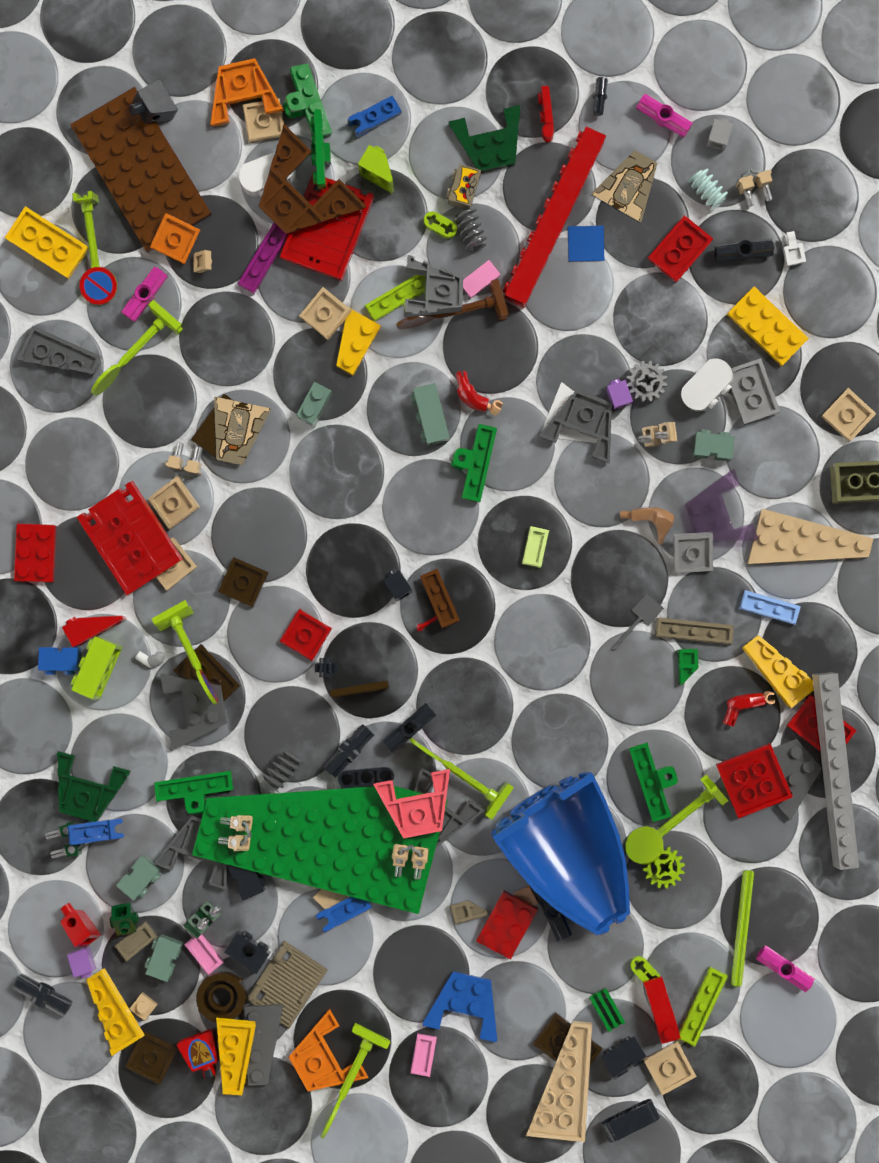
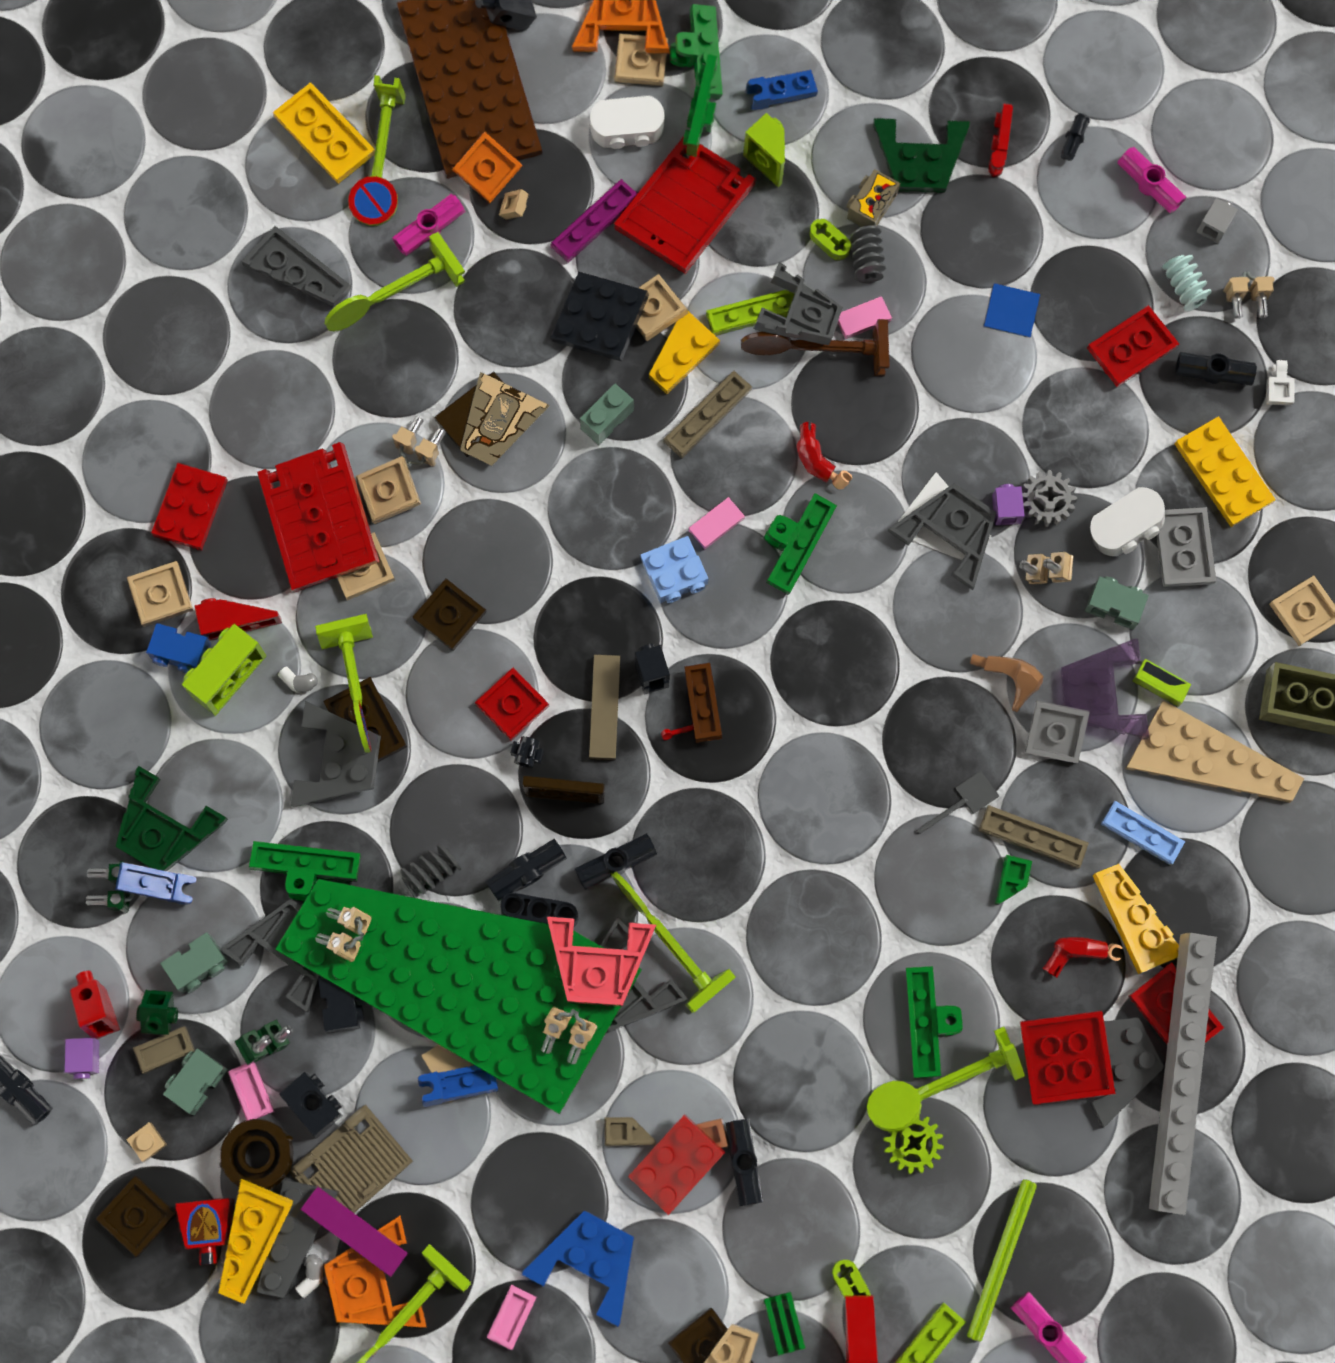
camera: 10 degrees right, 10 degrees down
(33, 622) = (159, 594): none -> tan tile
(117, 1019) = (106, 1150): yellow wing -> none
(283, 1063) = (314, 1275): none -> arm
(286, 205) = (641, 162): reddish brown wing -> none
(289, 330) = (600, 316): none -> black plate
(302, 1029) = (354, 1231): none -> magenta tile
(371, 619) = (604, 707): none -> dark tan tile
(386, 383) = (707, 414): none -> dark tan tile
(394, 506) = (675, 570): none -> light blue plate
(414, 463) = (716, 523): none -> bright pink tile
(430, 414) = (754, 466): sand green brick -> none
(535, 547) = (847, 671): yellowish green tile -> none
(555, 216) = (979, 266): red brick -> none
(569, 852) = (791, 1084): blue panel -> none
(629, 185) = (1085, 254): sticker -> none
(758, 495) = (1161, 683): none -> lime slope

